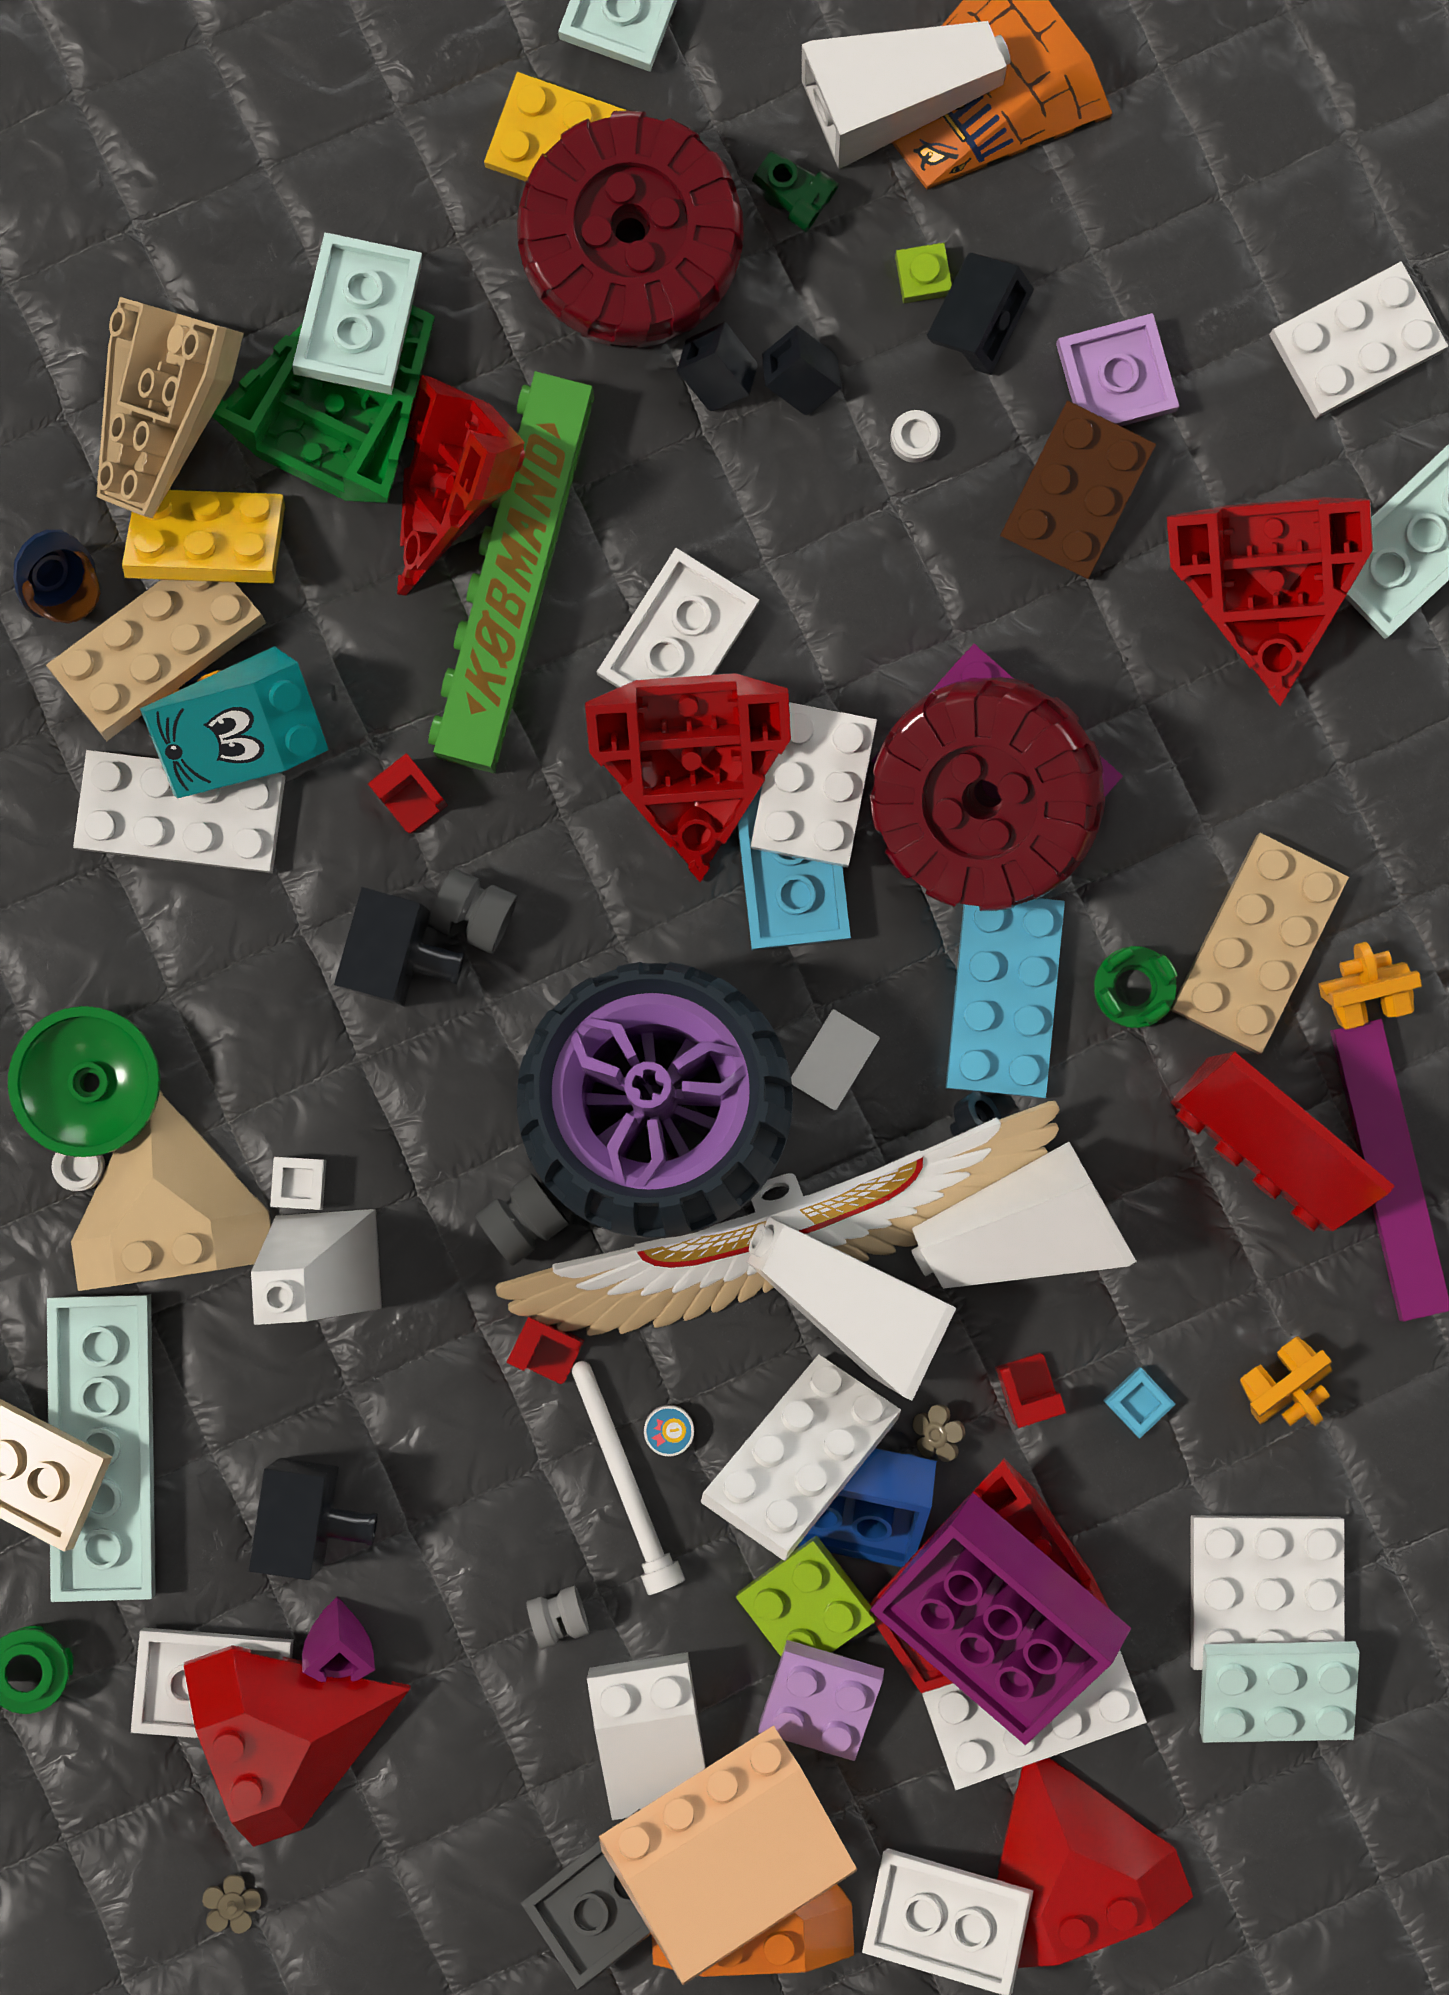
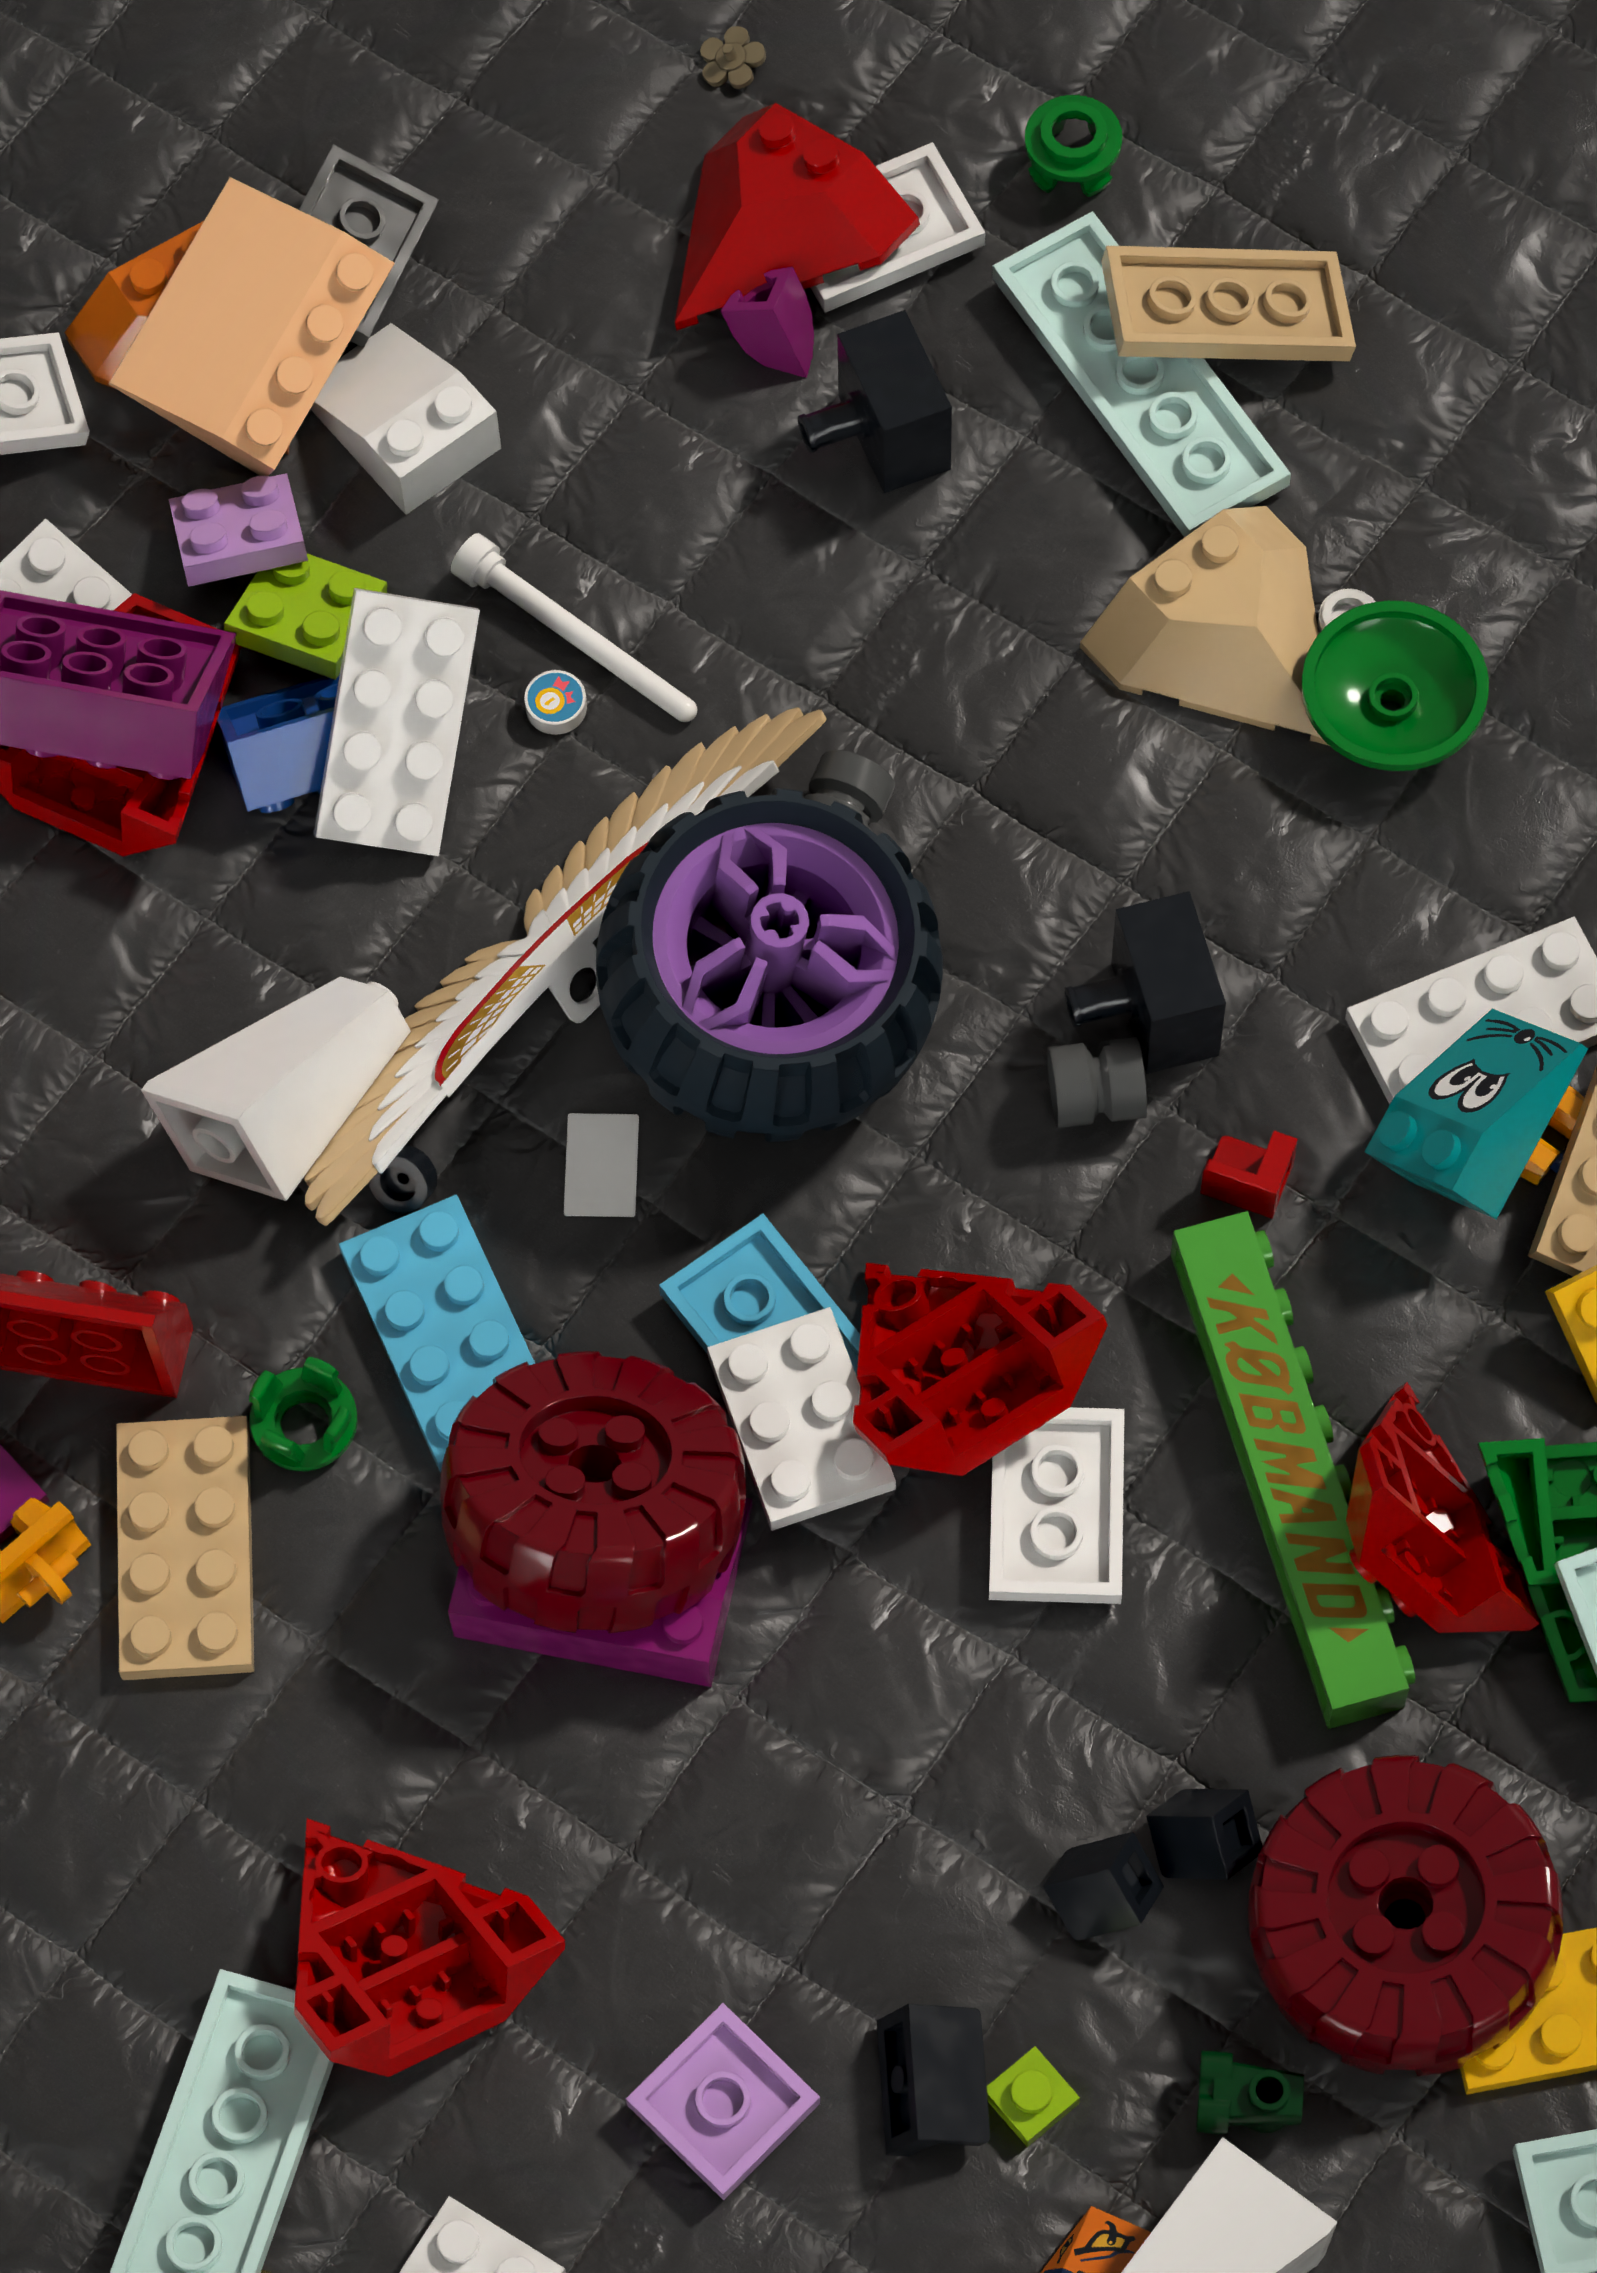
camera: 155 degrees right, 20 degrees down
(298, 1183) = (1105, 722): white plate -> none
(317, 1267) = (1026, 626): white slope -> none
(545, 1350) = (736, 703): red panel -> none
(557, 1617) = (562, 465): light grey wheel -> none
(864, 1311) = (426, 905): white slope -> none
(915, 436) = (923, 1896): white tile -> none
(938, 1433) = (260, 848): dark tan plant -> none
(1029, 1390) = (184, 939): red panel -> none
(1077, 489) = (691, 1931): reddish brown plate -> none
(1139, 1402) = (55, 998): medium azure tile -> none

